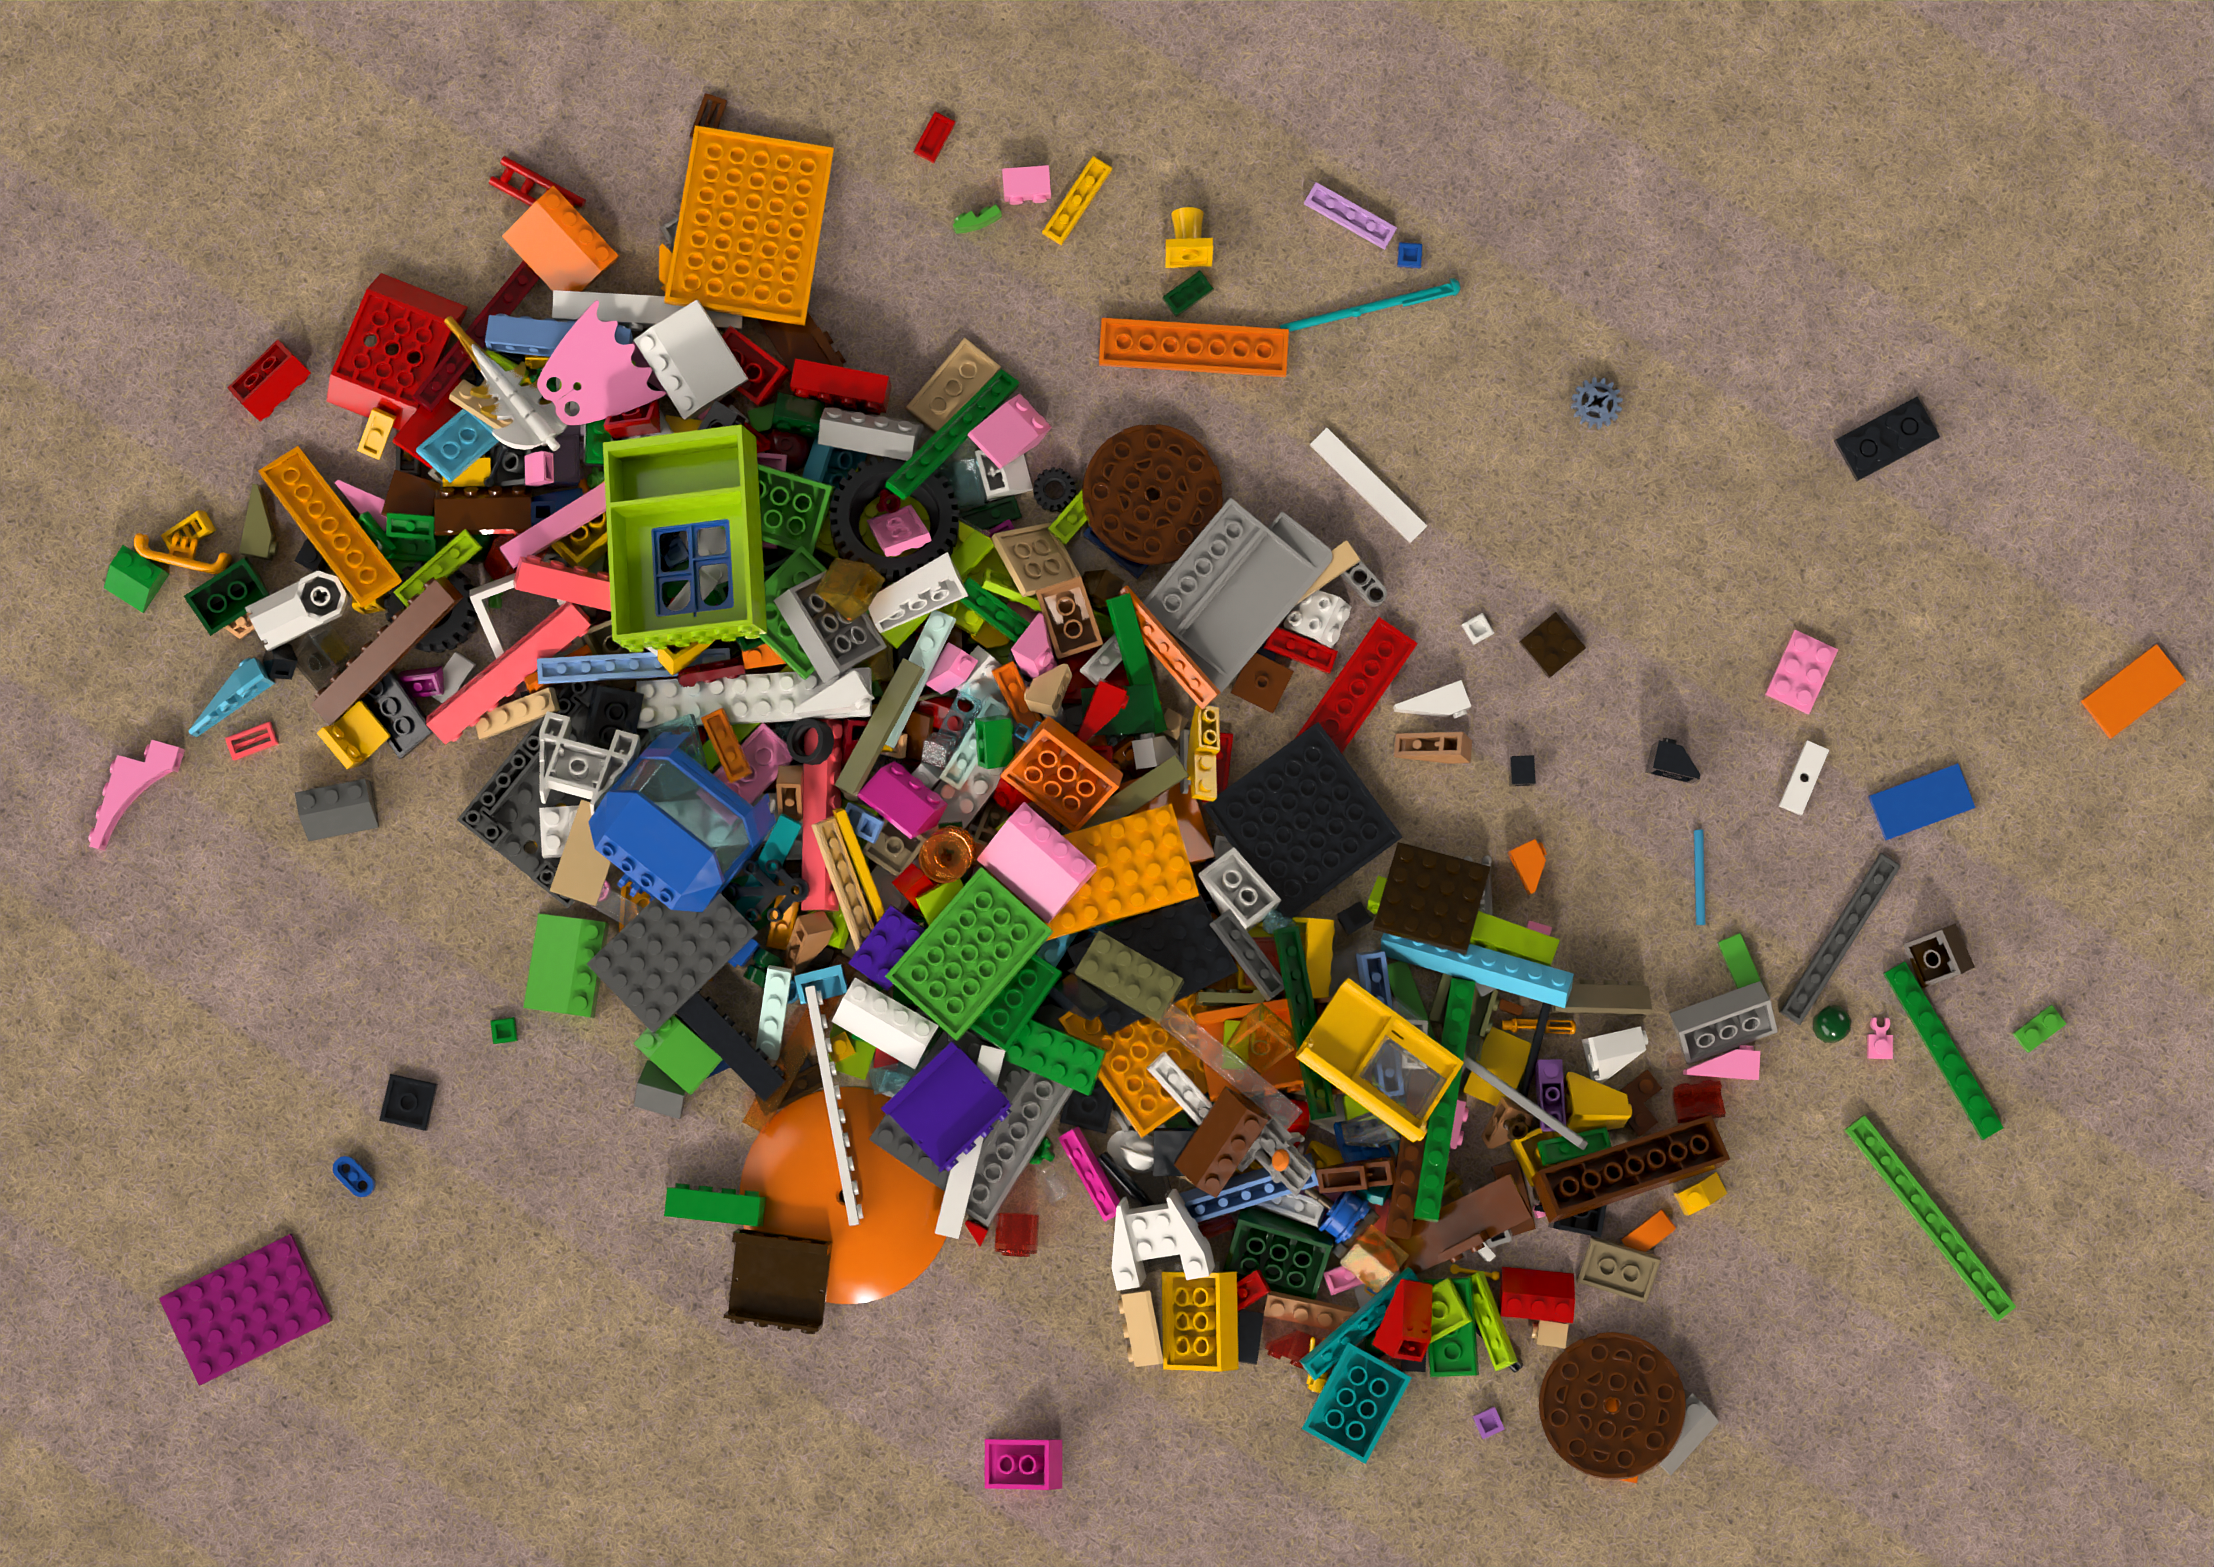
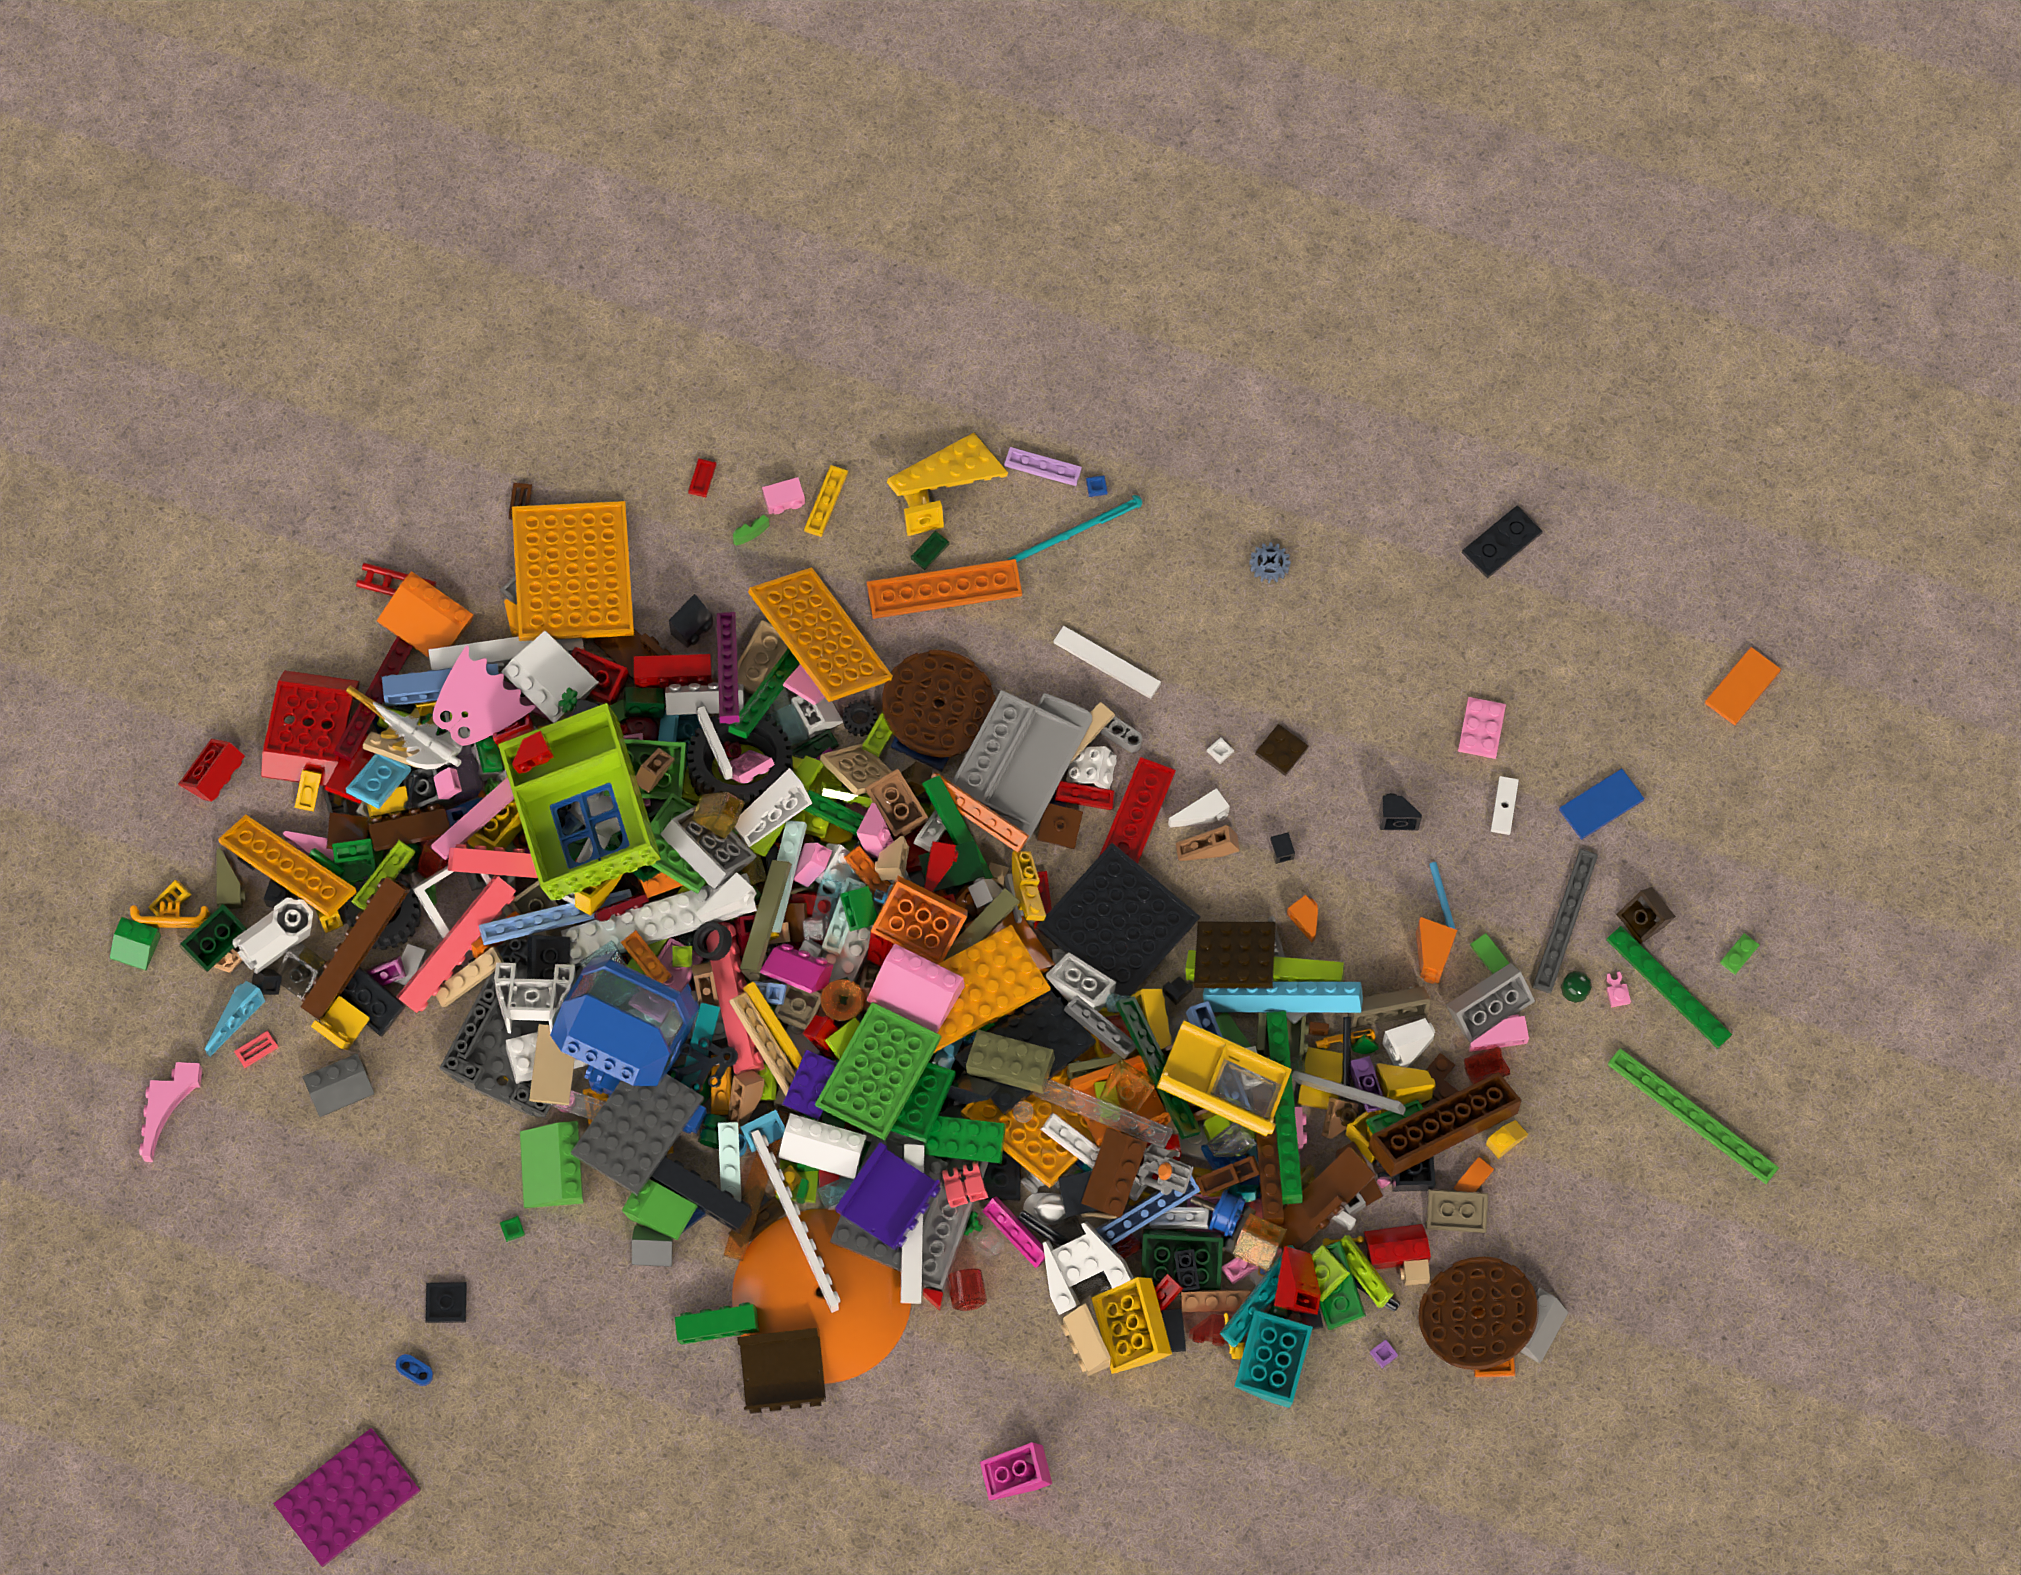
camera: 15 degrees left, 15 degrees down
(639, 466) = (532, 752): none -> red slope
(705, 398) = (569, 700): none -> green plant
(771, 751) = (681, 956): none -> lime plate
(785, 513) = (653, 769): none -> medium nougat slope
(851, 1068) = (802, 1191): none -> green tile
(866, 497) = (714, 743): none -> white tile
(878, 323) = (690, 622): none -> black slope
(903, 402) = (727, 668): none -> magenta plate
(1028, 377) = (820, 634): none -> light orange plate
(1036, 1115) = (958, 1190): none -> coral legs
(1131, 1037) = (1023, 1111): none -> clear tile
(1241, 192) = (949, 467): none -> yellow wing
(1280, 1271) = (1187, 1269): none -> black slope
(1560, 1040) = (1365, 1045): none -> green tile
(1672, 943) = (1433, 947): none -> orange slope

